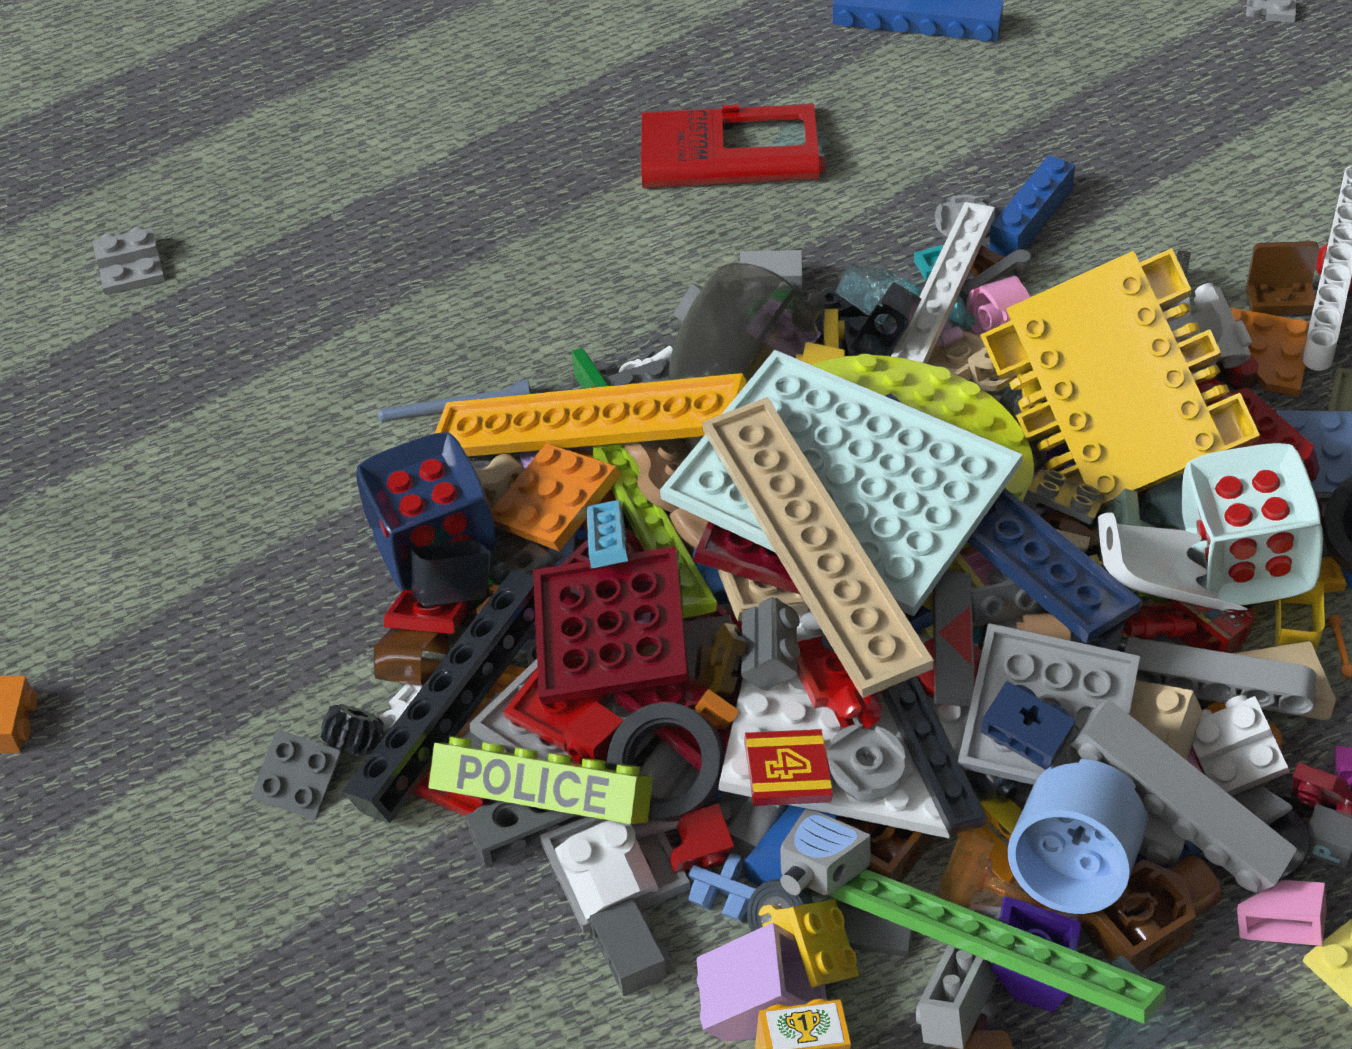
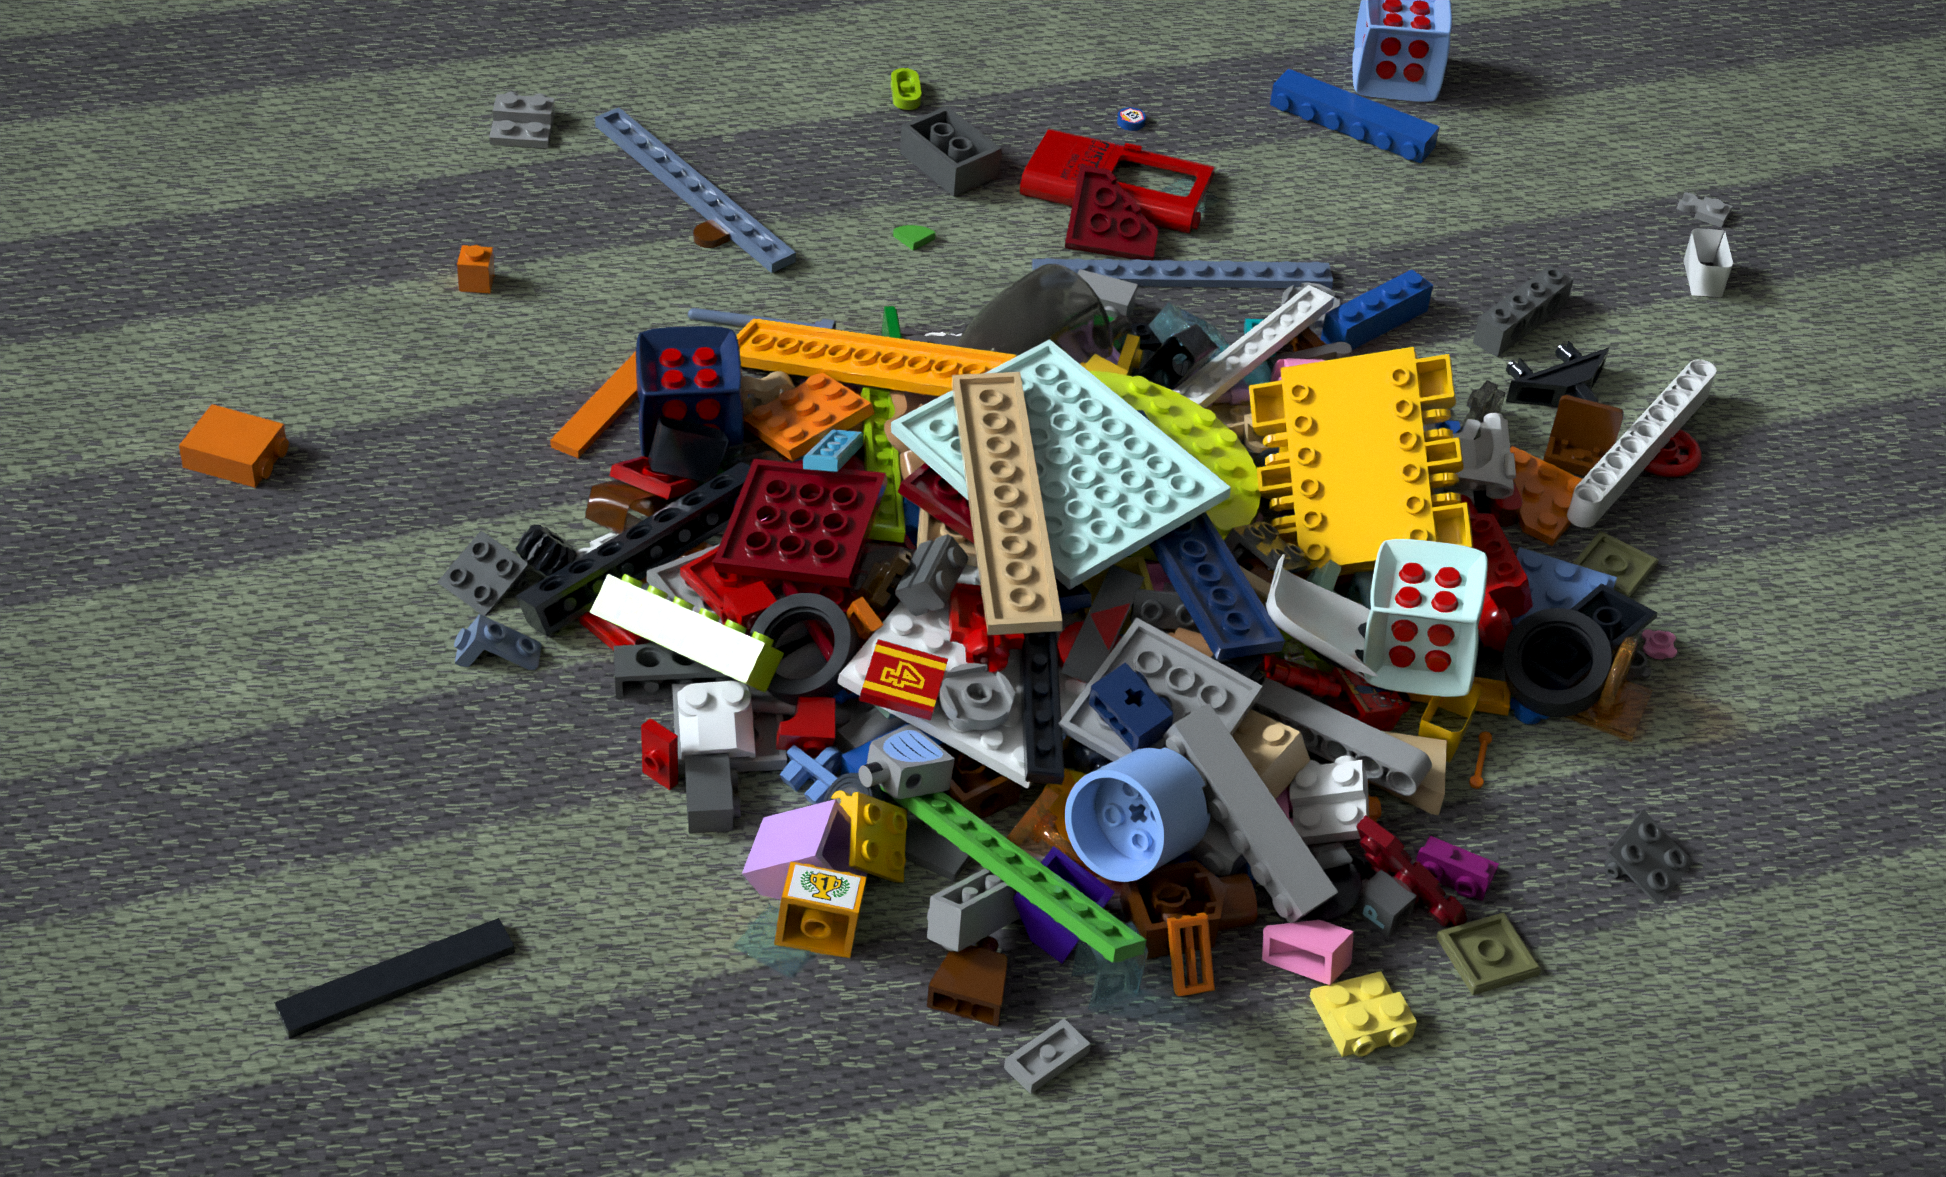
camera: 10 degrees right, 5 degrees down
(149, 437) = (475, 269): none -> orange brick
(331, 281) = (695, 190): none -> sand blue plate
(339, 541) = (598, 411): none -> orange tile
(342, 846) = (497, 639): none -> sand blue bracket
(364, 324) = (710, 234): none -> reddish brown tile
(487, 112) = (905, 89): none -> lime plate
(561, 165) = (950, 151): none -> dark grey brick
(561, 263) = (914, 236): none -> bright green tile
(564, 922) = (659, 753): none -> red plate
(712, 78) = (1131, 119): none -> tile
(741, 189) = (1108, 219): none -> dark red plate
(833, 222) = (1203, 273): none -> sand blue plate
(1163, 164) = (1523, 311): none -> dark grey brick
(1174, 966) = (1186, 923): none -> orange tile
(1230, 230) = (1547, 386): none -> black connector
(1302, 79) = (1702, 248): none -> white piece

